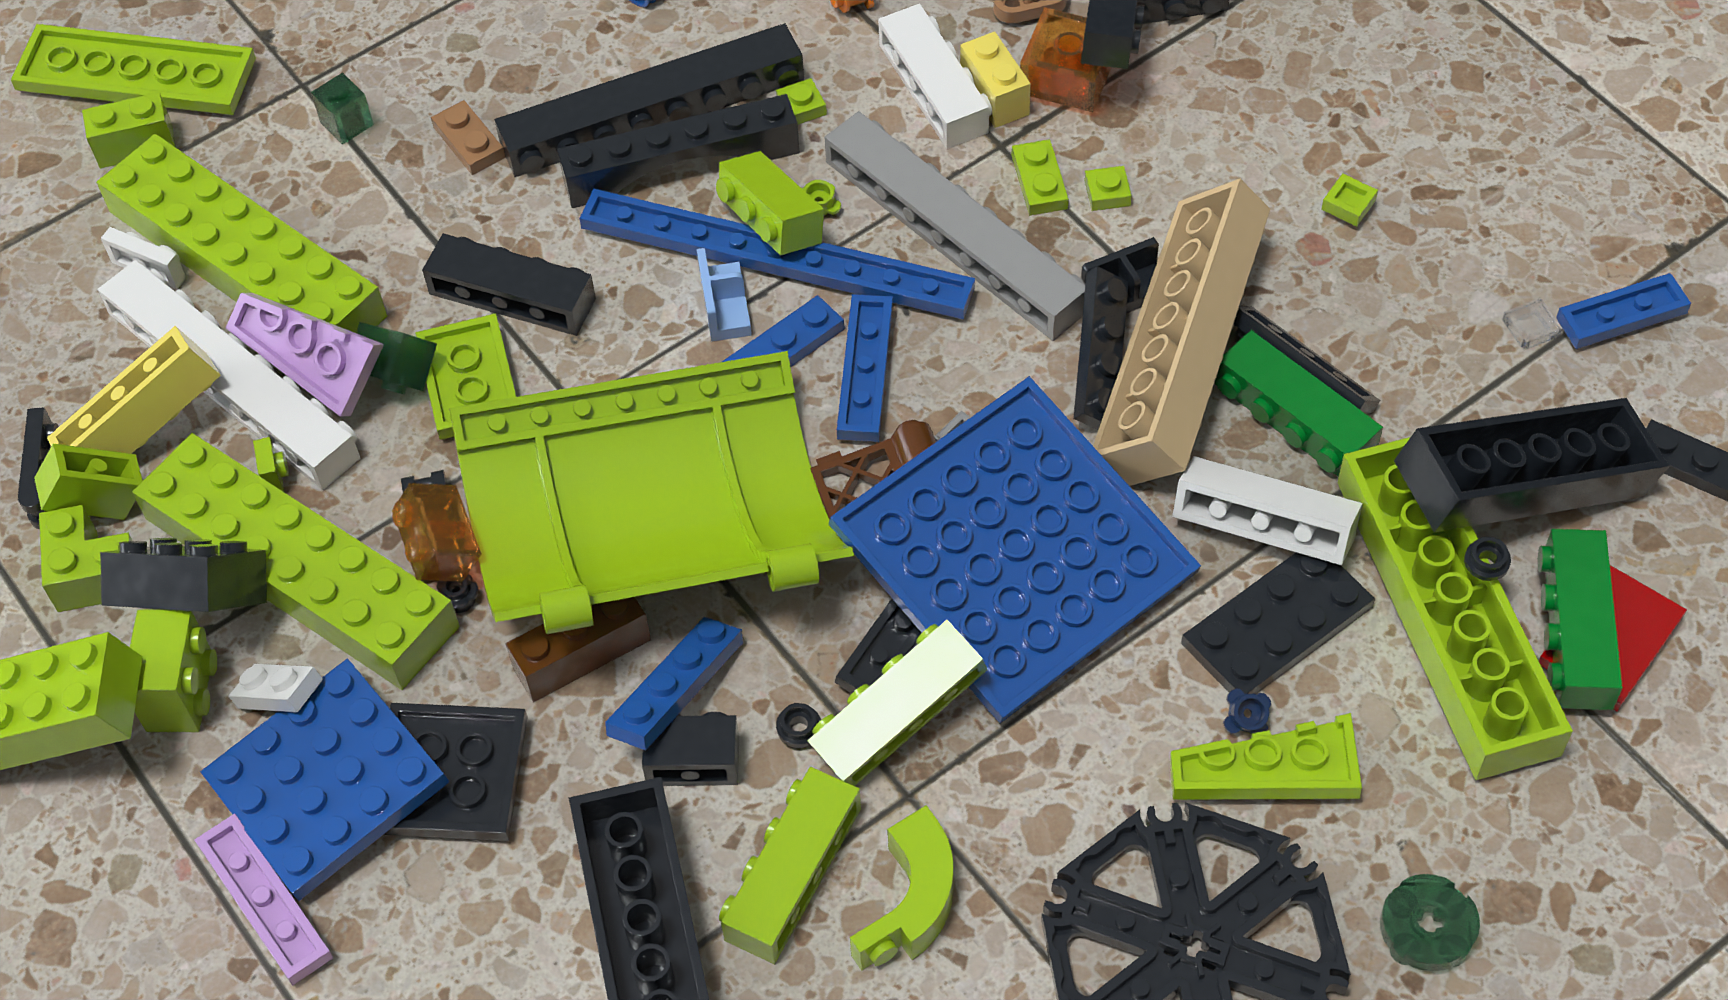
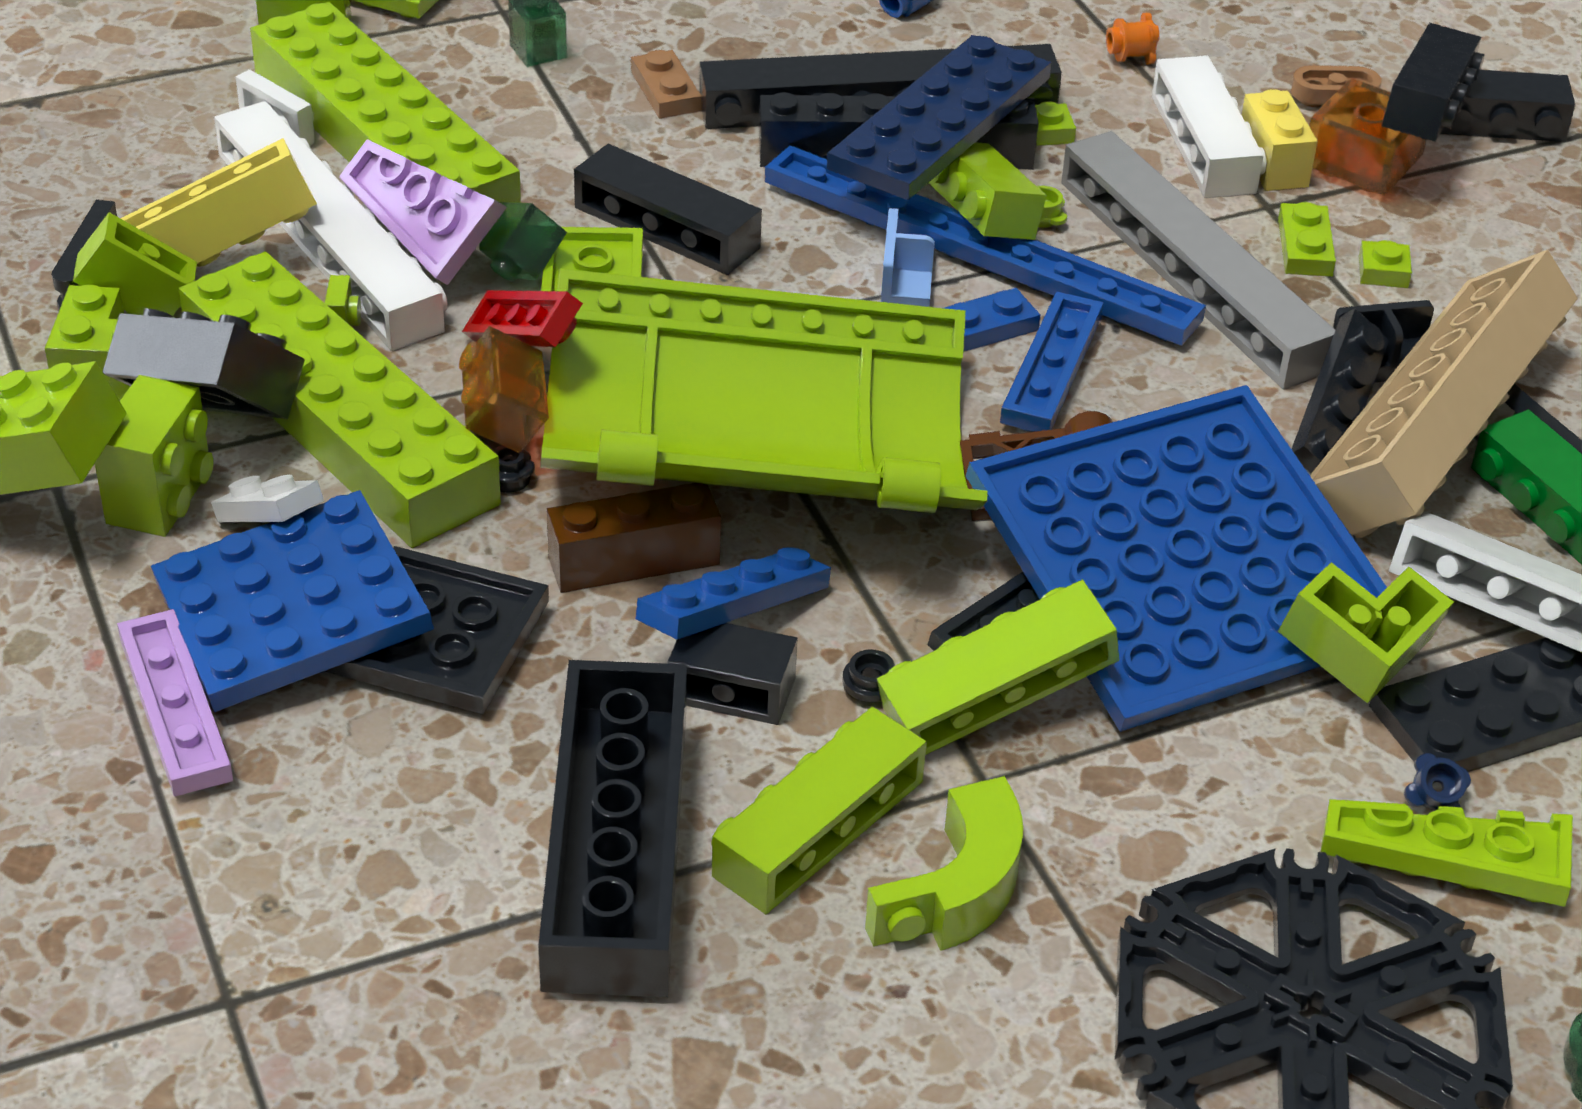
camera: 10 degrees right, 15 degrees down
(430, 455) = (529, 316): none -> red plate
(715, 143) = (938, 116): none -> dark blue plate
(1167, 601) = (1364, 636): none -> lime brick

